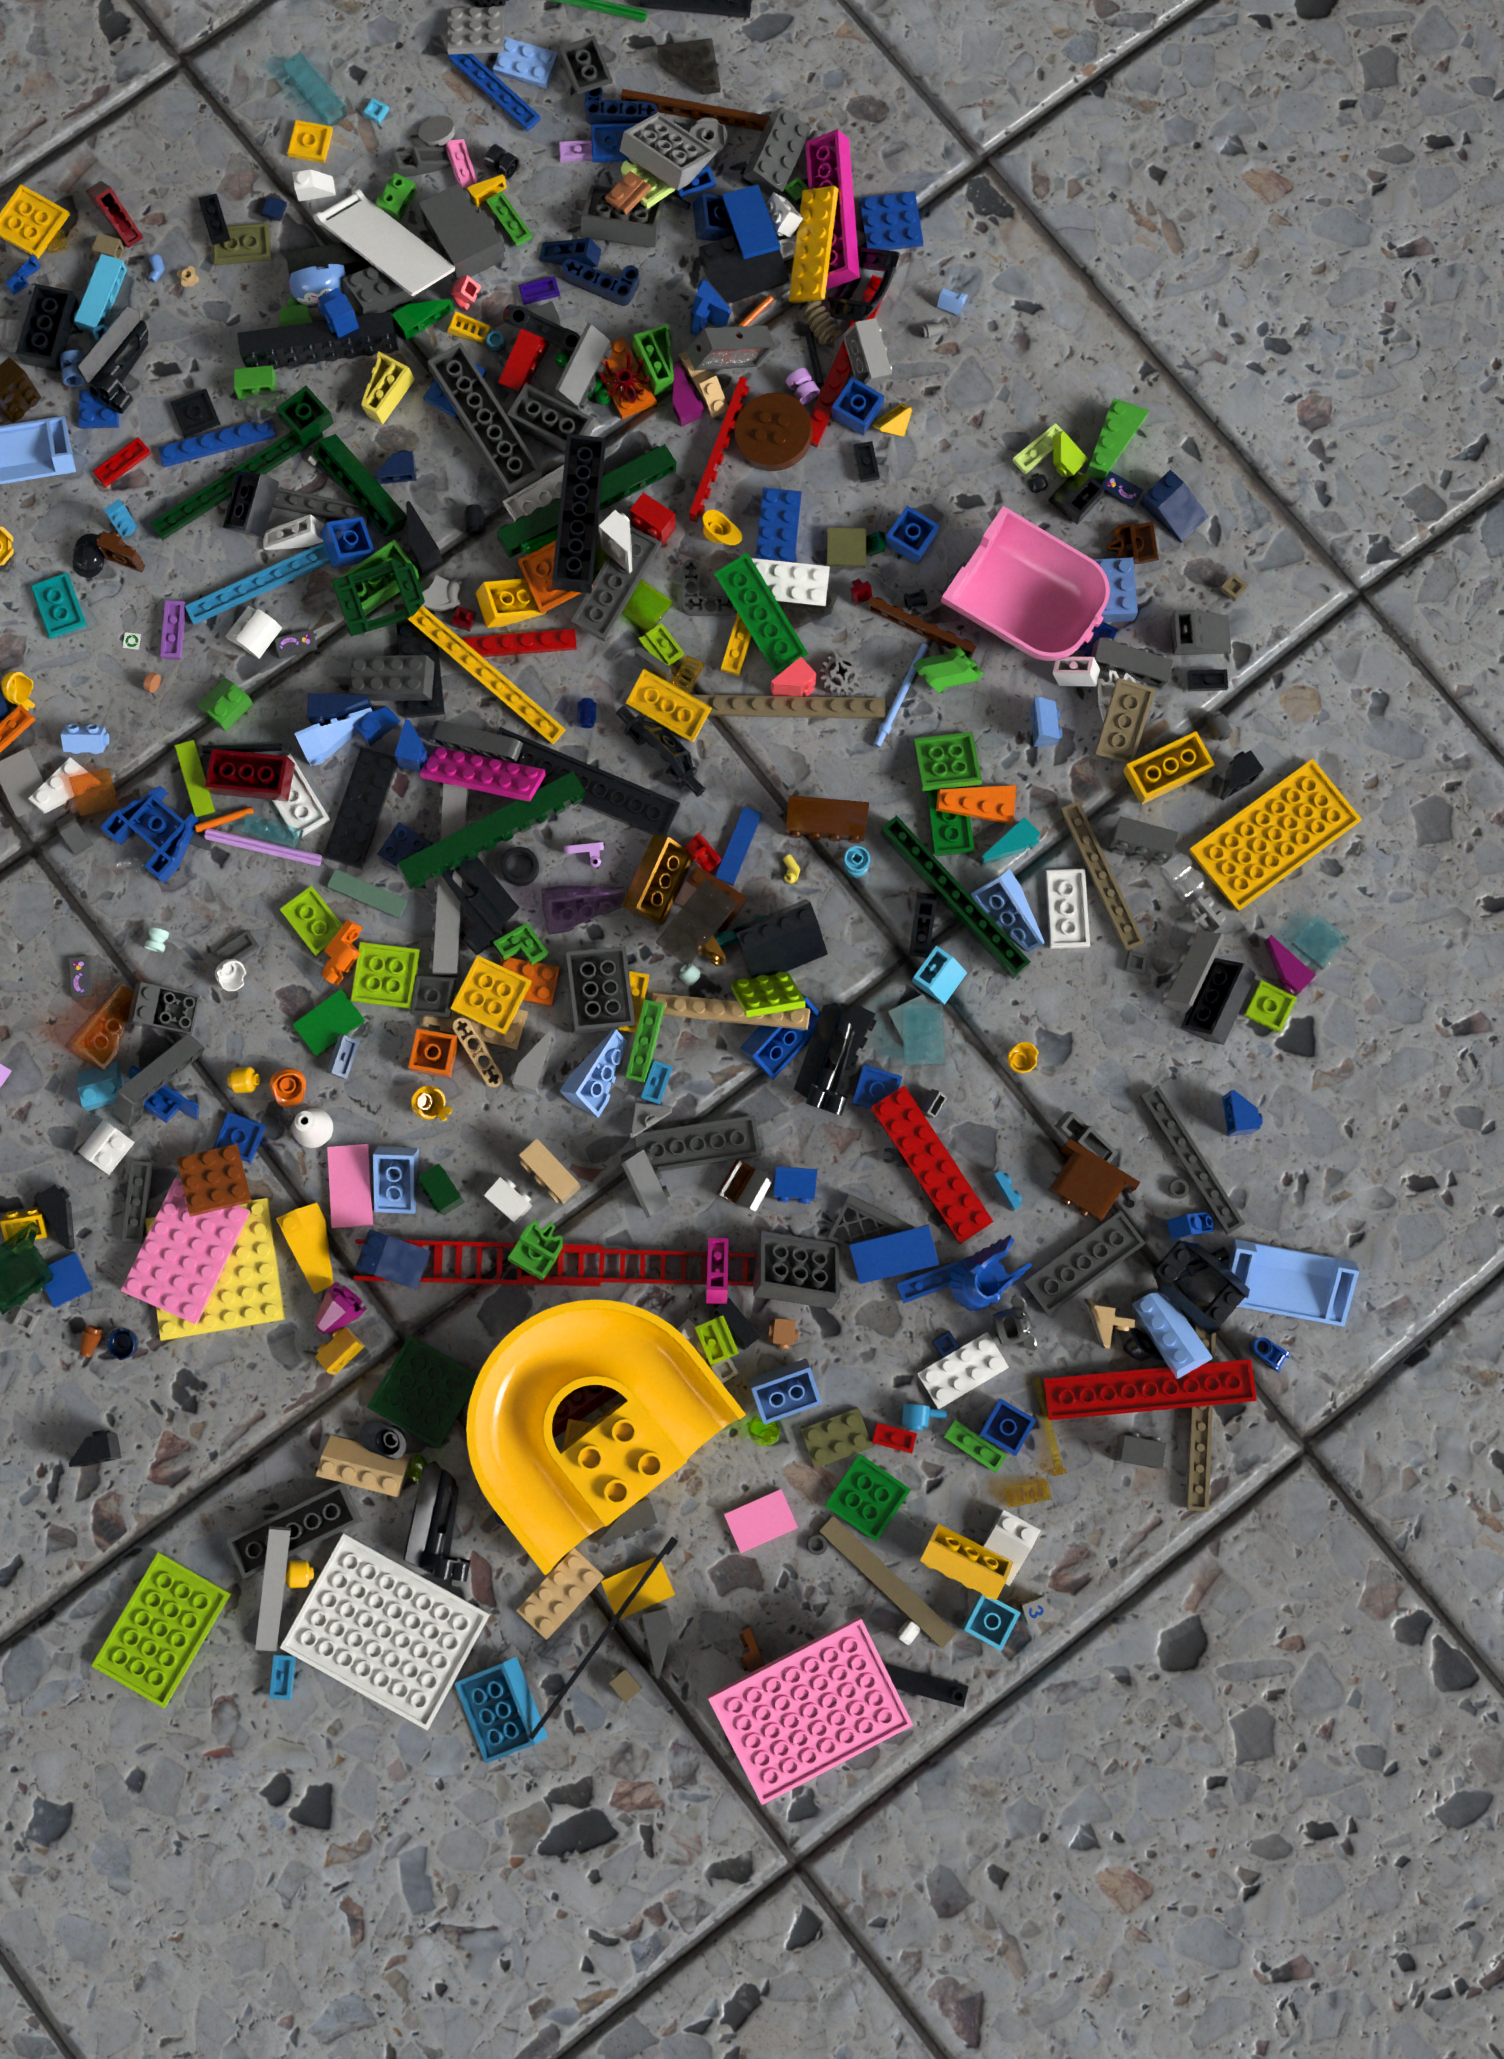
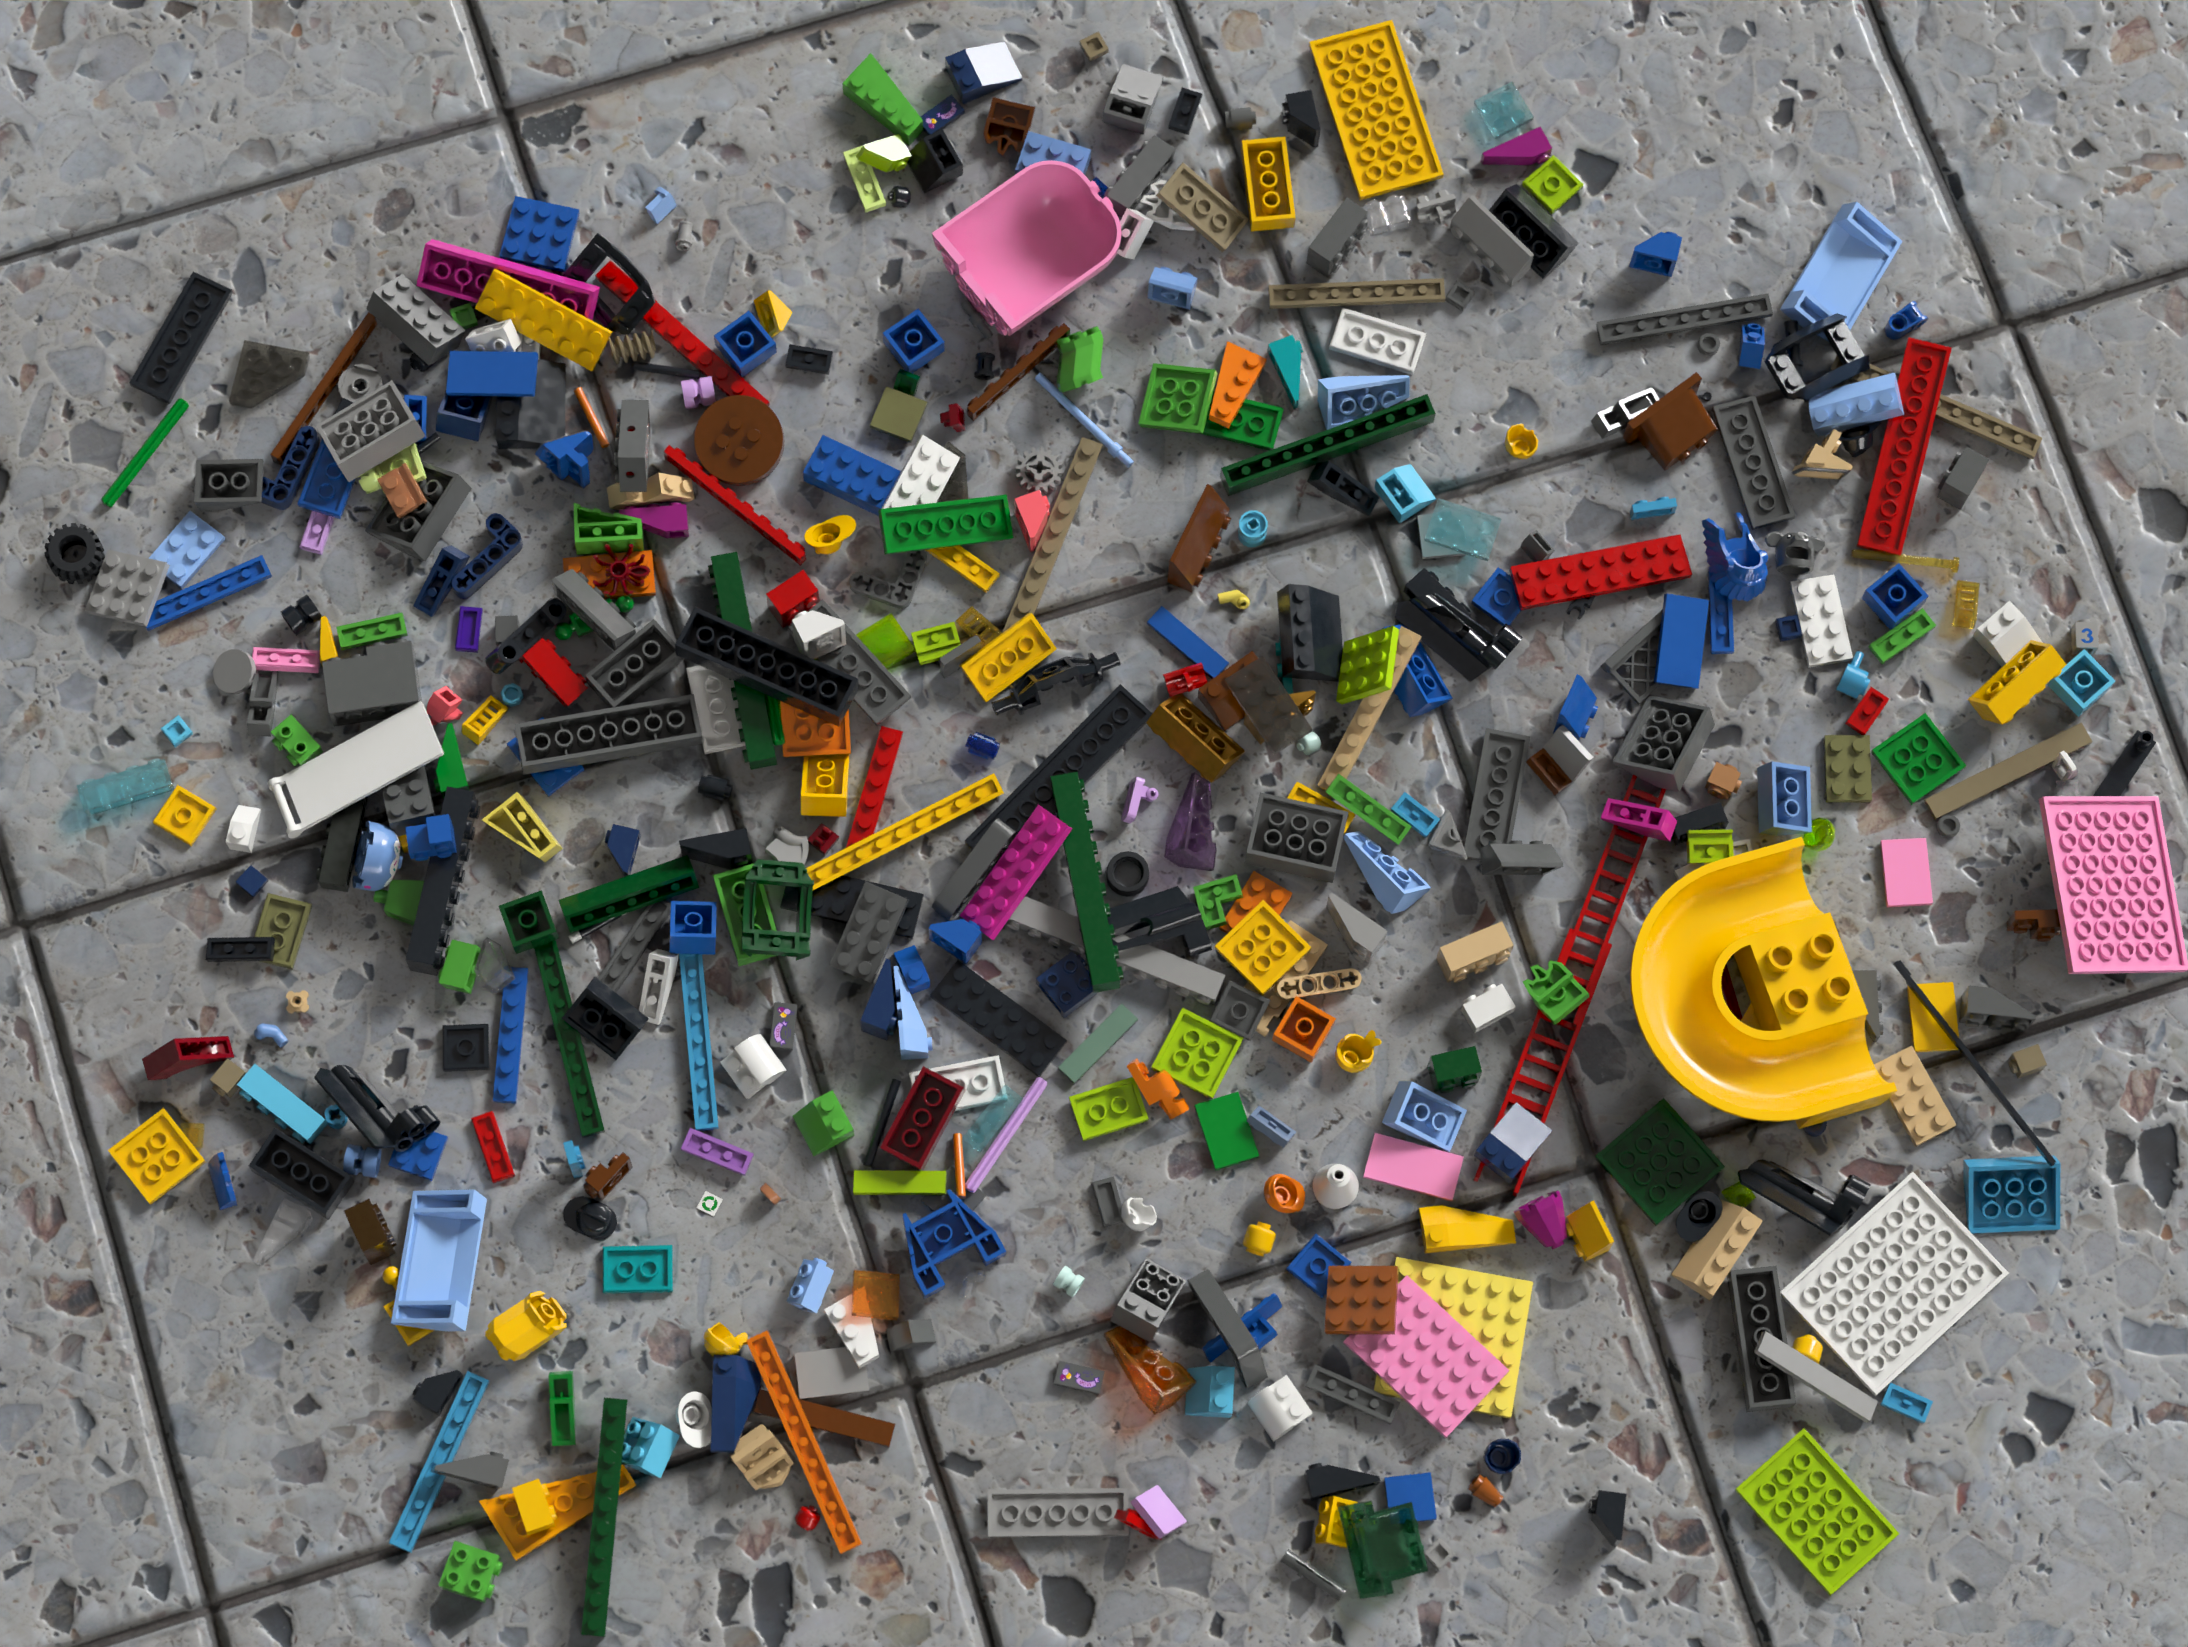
camera: 70 degrees left, 5 degrees down
(867, 352) = (693, 310): light grey brick -> none

